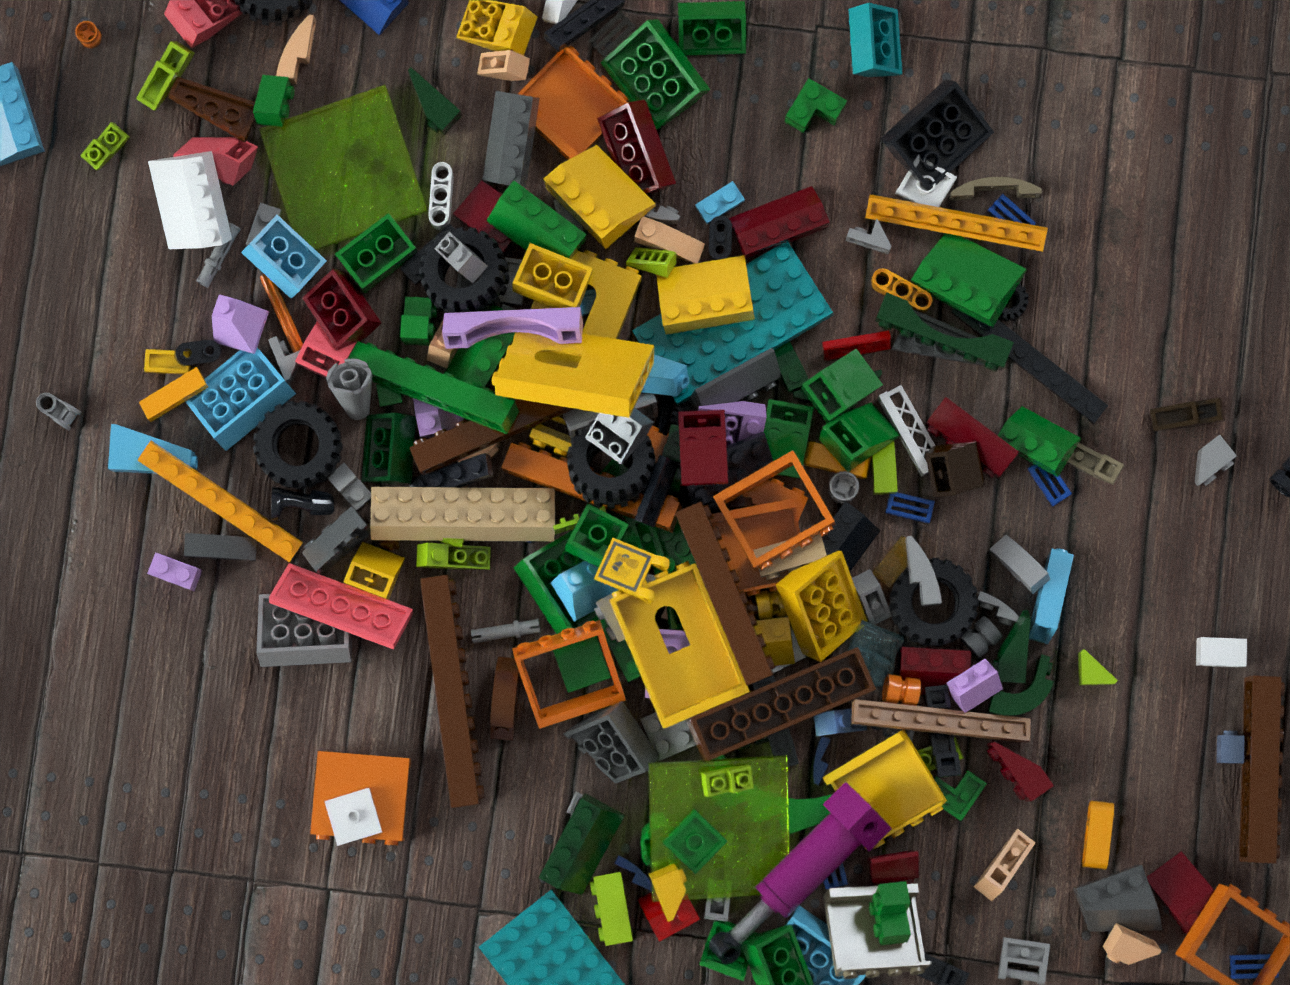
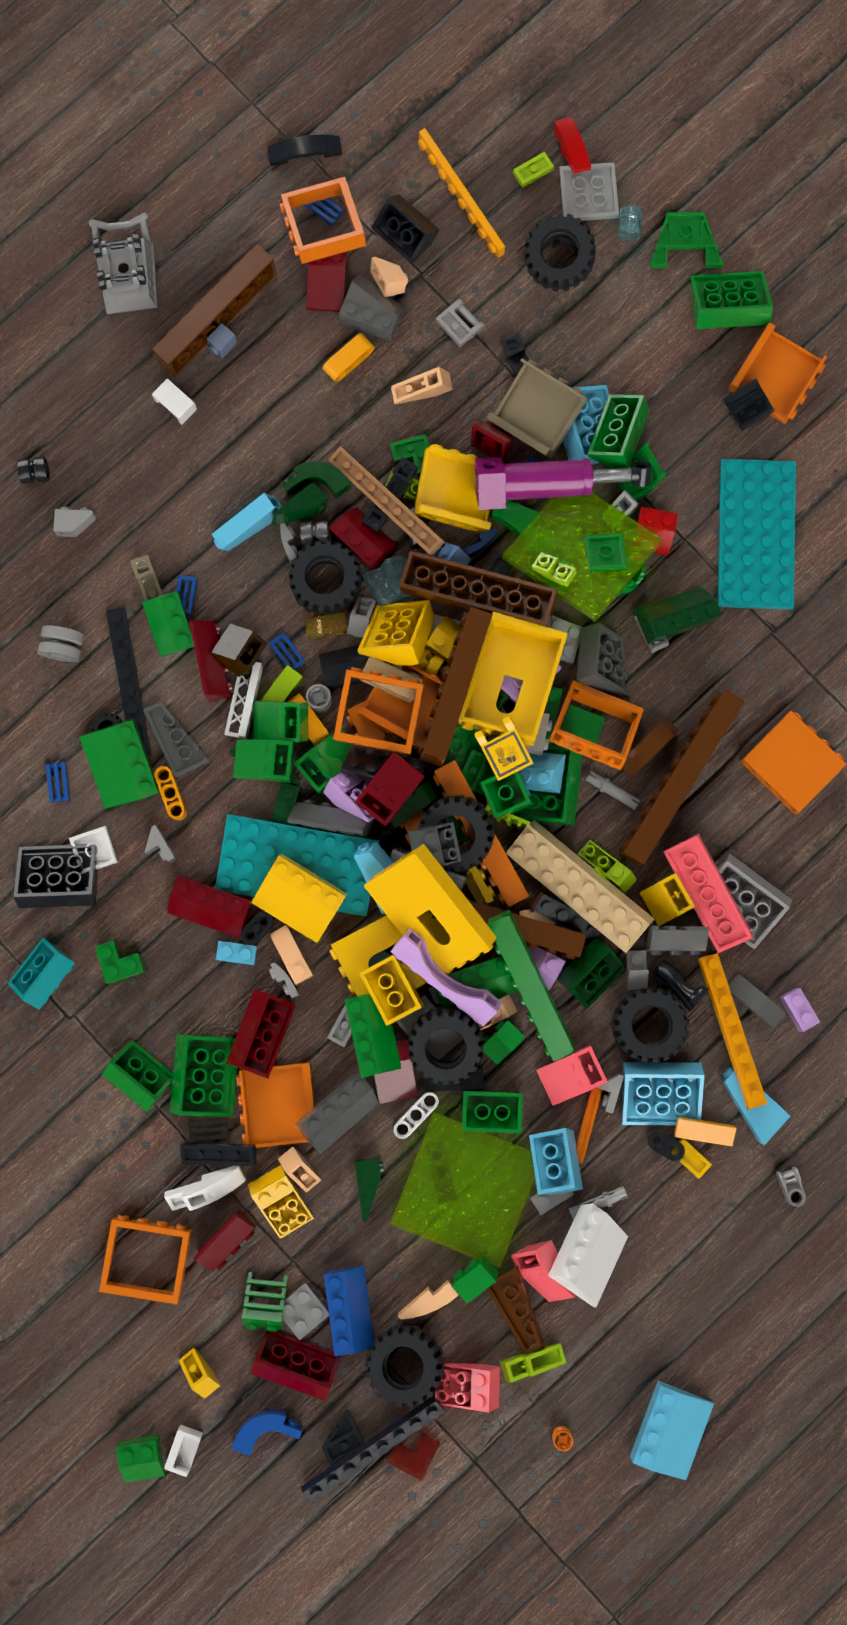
camera: 145 degrees left, 0 degrees up
(105, 147) = (614, 1346): lime slope -> none
(238, 324) = (623, 1142): lavender slope -> none
(341, 309) = (547, 1092): dark red slope -> none
(351, 387) = (583, 1032): light grey cone -> none
(353, 816) = (810, 750): white plate -> none
(388, 397) = (563, 1008): green tile -> none
(460, 257) = (441, 1054): light grey slope -> none
(598, 194) = (311, 1023): yellow slope -> none
(611, 909) = (690, 561): lime brick -> none
(640, 877) = (657, 565): dark blue slope -> none
(656, 491) = (443, 788): black plate -> none
(662, 265) = (315, 942): lime slope -> none
(669, 888) = (646, 536): yellow slope -> none
(863, 343) = (230, 783): red tile -> none
(890, 913) = (520, 409): green brick -> none
(902, 691) = (397, 542): orange wheel -> none
(922, 572) = (318, 595): light grey slope -> none
(956, 222) = (96, 807): light orange plate -> none
(975, 685) = (345, 504): lavender brick -> none
(989, 350) = (185, 775): dark green arch -> none
(1020, 563) = (250, 557): light grey slope -> none
(1023, 188) = (35, 793): dark tan slope -> none
(1027, 777) = (363, 426): dark red slope -> none
(1092, 672) = (265, 456): lime slope -> none
(1117, 335) = (60, 643): none -> light grey wheel
(1187, 414) = (62, 562): dark brown slope -> none

